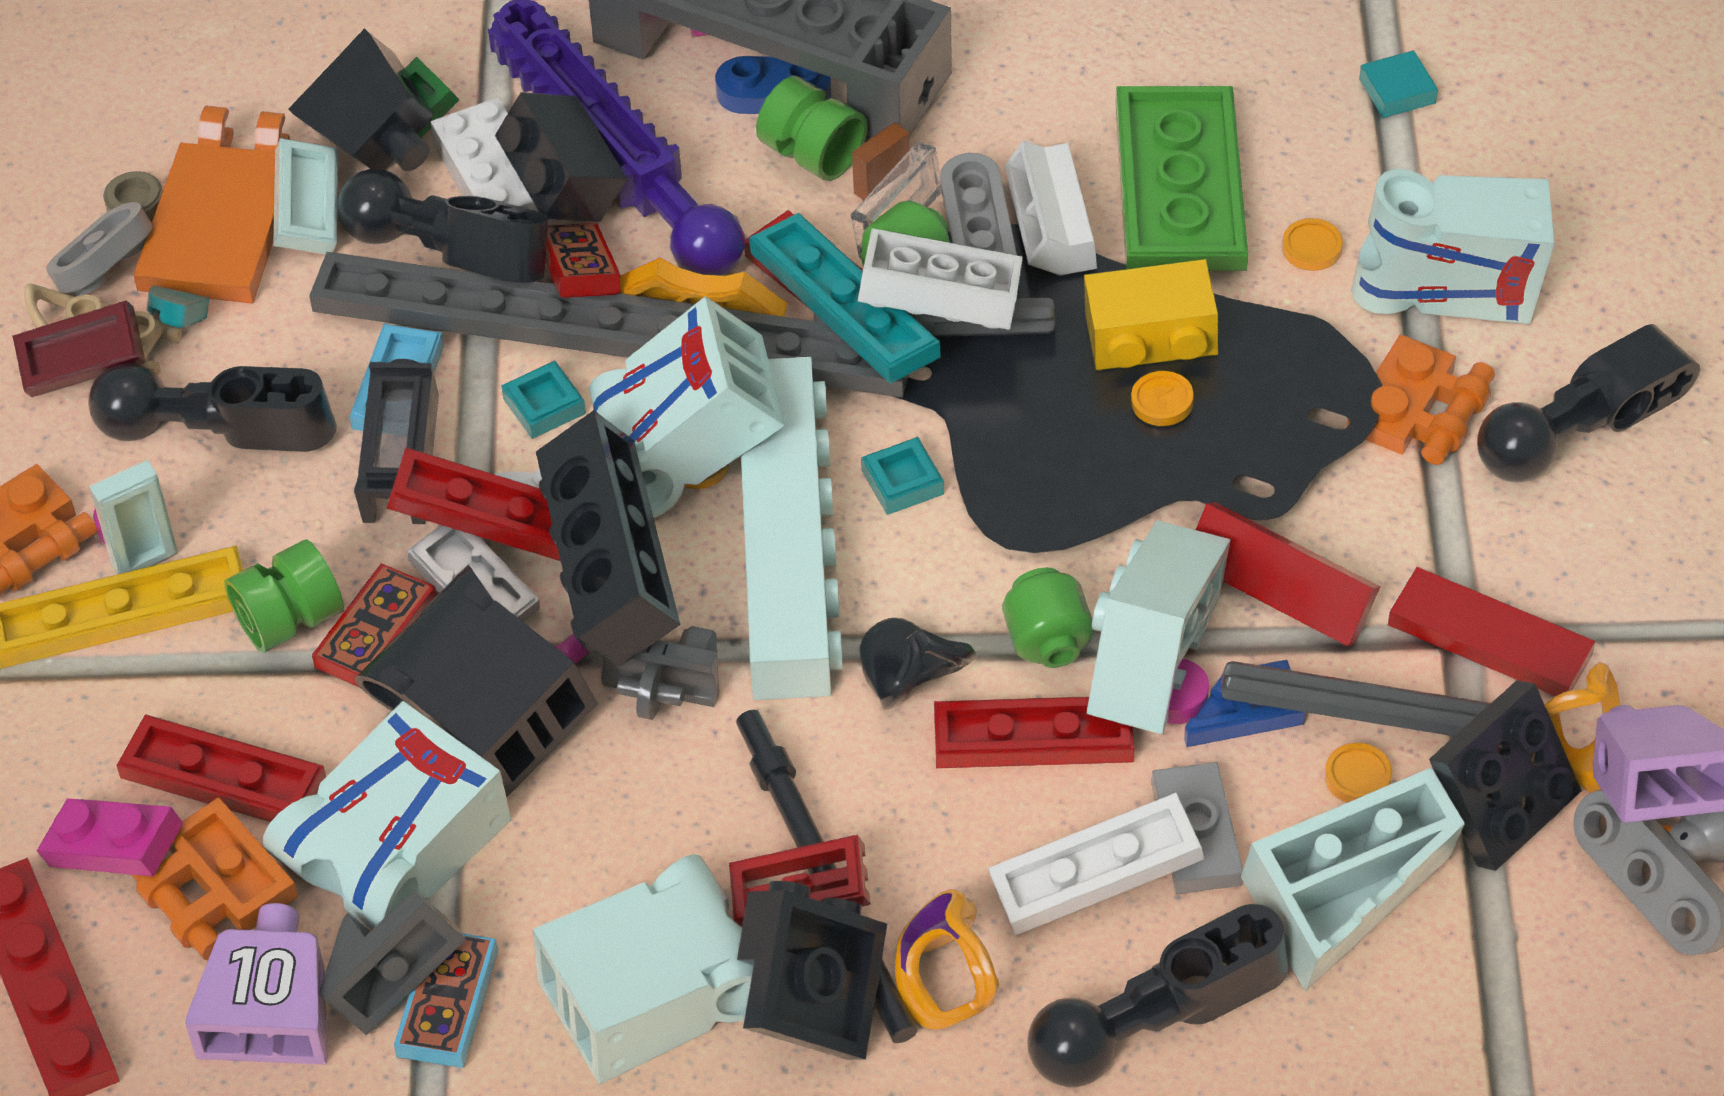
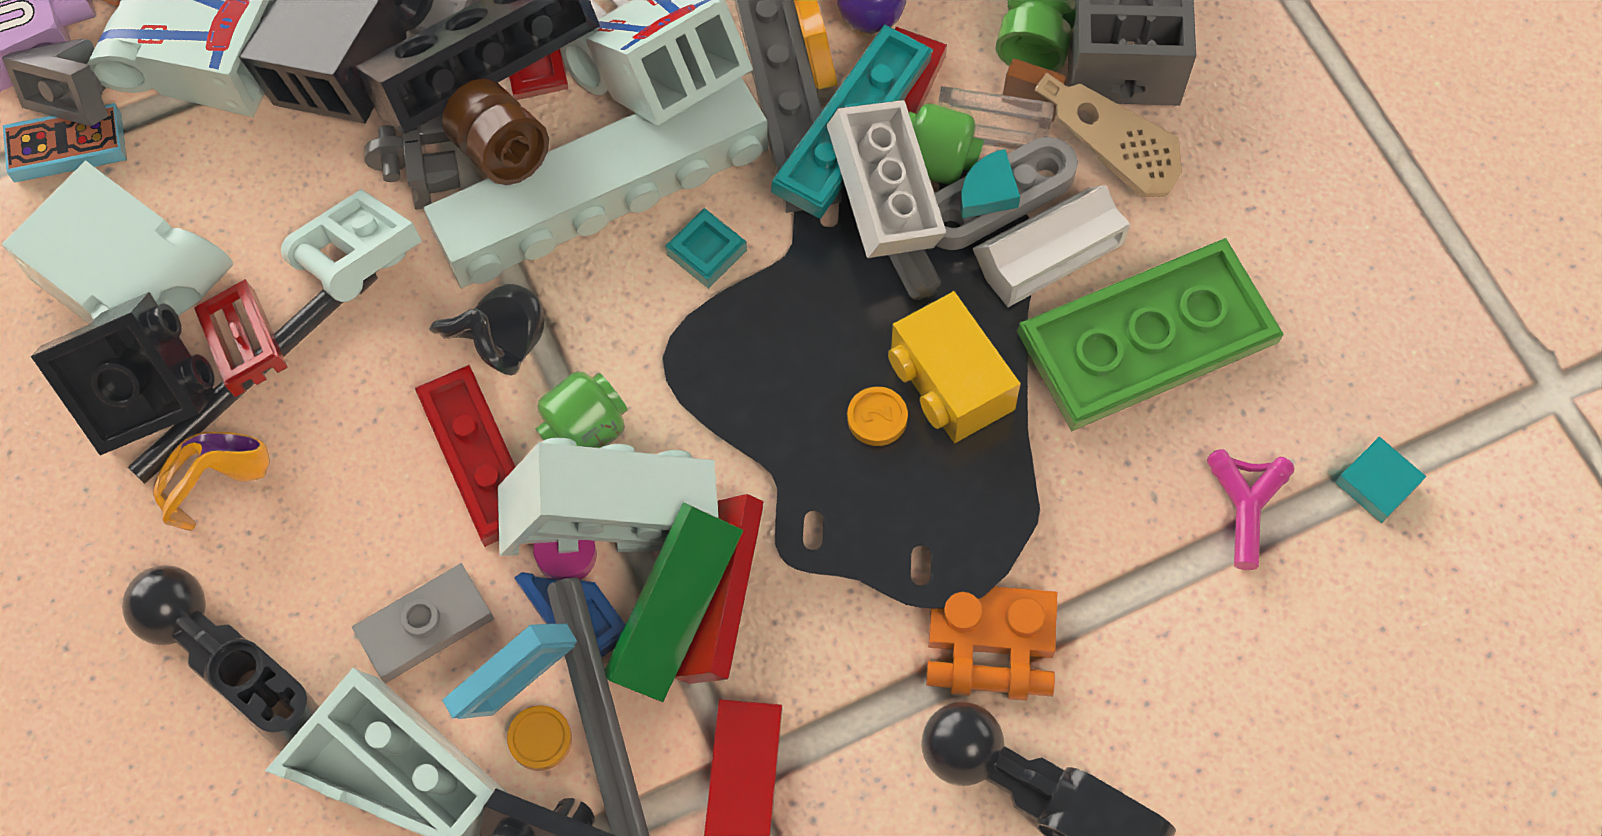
camera: 65 degrees right, 15 degrees up
(709, 558) = (495, 131): none -> reddish brown wheel
(741, 731) = (362, 229): none -> light aqua plate
(978, 113) = (1110, 130): none -> tan piece
(980, 217) = (989, 186): none -> teal tile
(1096, 863) = (335, 554): white plate -> none
(1285, 598) = (672, 602): none -> green tile
(1300, 742) = (510, 671): none -> medium azure tile
(1312, 244) = (1140, 477): light orange piece -> none
(1359, 180) = (1248, 499): none -> dark pink piece
(1456, 246) = (1163, 598): light aqua piece -> none

